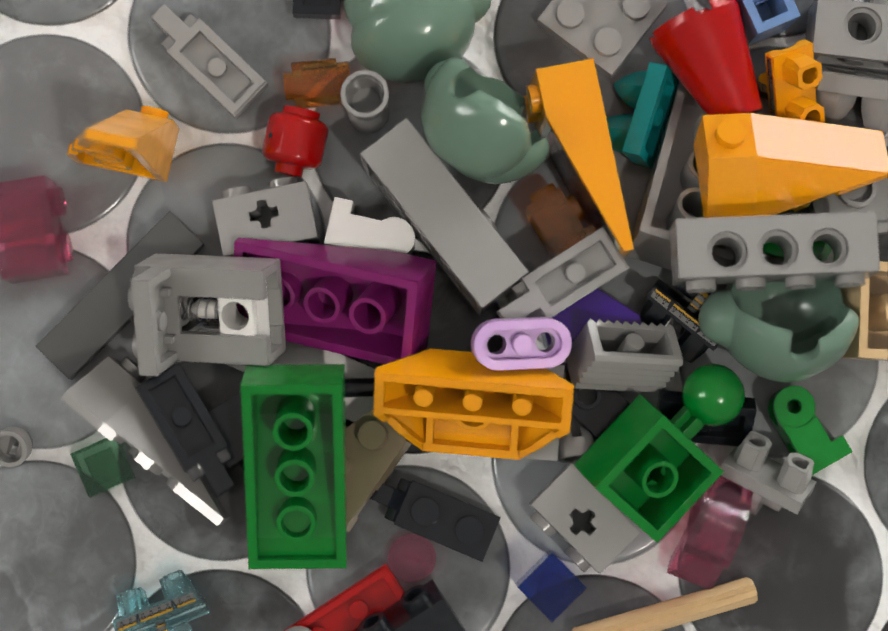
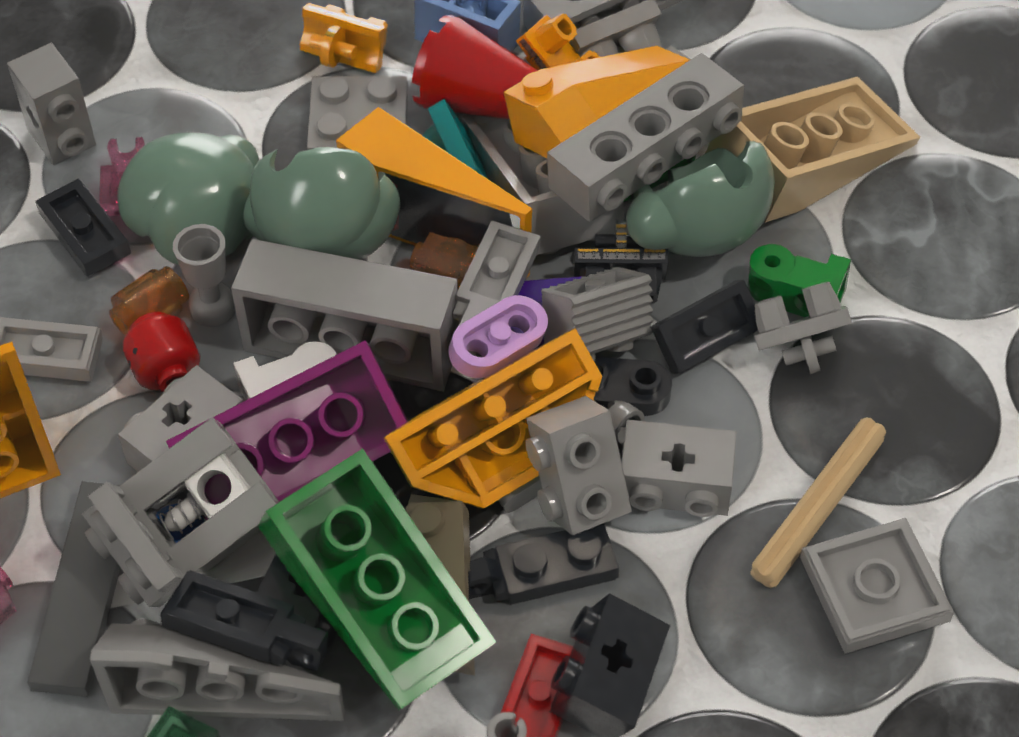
camera: 35 degrees left, 30 degrees down
(412, 558) = (550, 616): clear pink piece -> none
(504, 477) = (577, 465): none -> light grey brick
(550, 586) = (698, 537): clear blue brick -> none
(651, 463) = (690, 361): green brick -> none
(712, 533) = (799, 395): clear pink brick -> none

